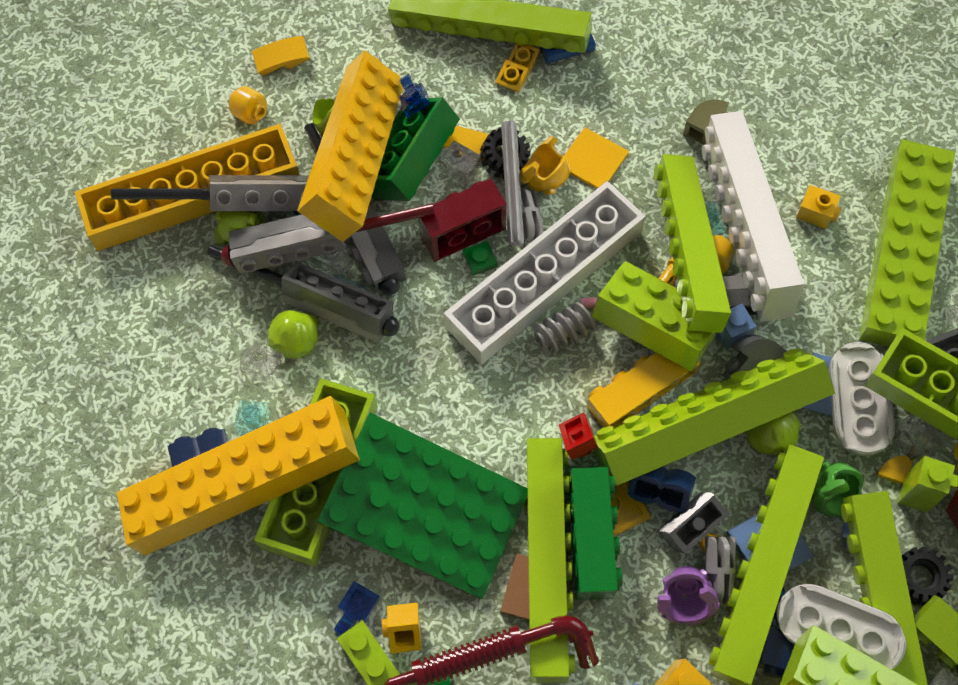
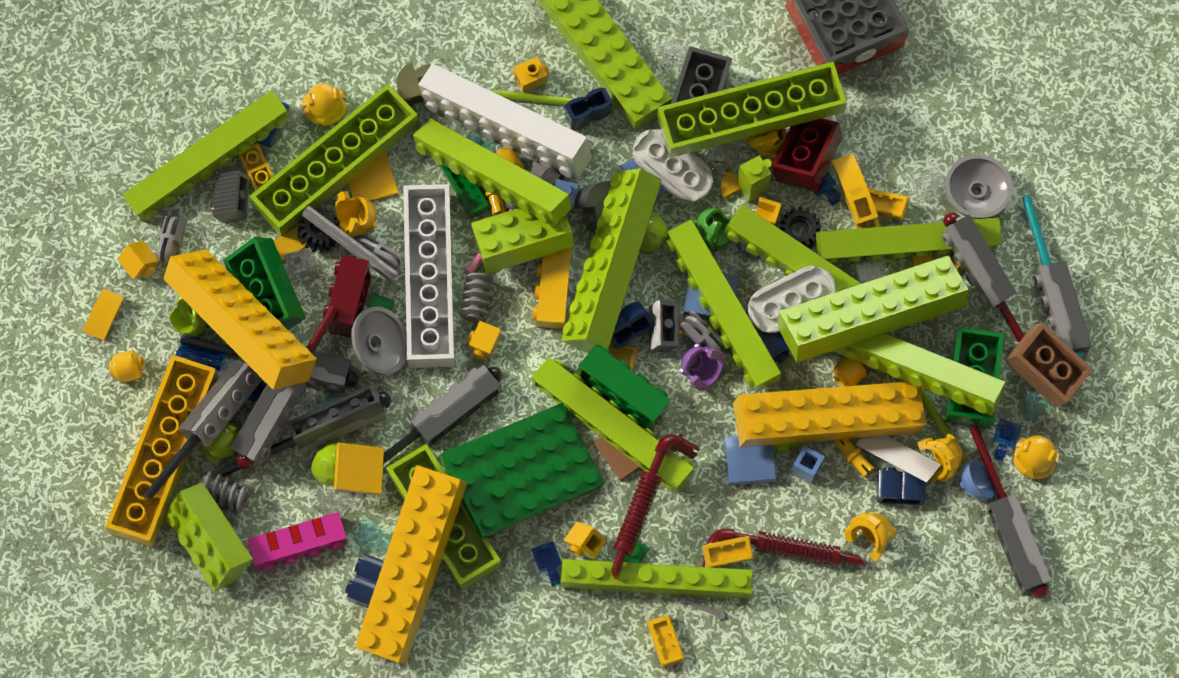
camera: 55 degrees left, 5 degrees up
(131, 280) = (208, 536): none -> lime brick
(190, 264) = (225, 493): none -> light grey piece
(193, 362) = (297, 541): none -> dark pink brick
(301, 355) = (358, 468): none -> yellow tile
(302, 149) = (202, 356): none -> clear blue plate
(350, 40) = (138, 260): none -> yellow brick
(396, 49) = (170, 237): none -> light grey arm
(414, 97) = (233, 254): clear blue plate -> none
(426, 391) = (451, 409): none -> piece
(458, 275) = (380, 340): none -> light grey dish
(471, 65) = (230, 196): none -> dark grey brick
(527, 369) = (483, 340): none -> yellow brick
(578, 436) = (555, 346): red plate -> none
(583, 113) = (334, 159): none -> lime brick
(624, 70) = (324, 104): none -> yellow helmet
(655, 247) = (467, 192): none -> green plate
(805, 234) = (533, 98): none -> lime bar
(840, 279) = (592, 107): none -> dark blue brick
(909, 528) = (768, 210): none -> yellow panel

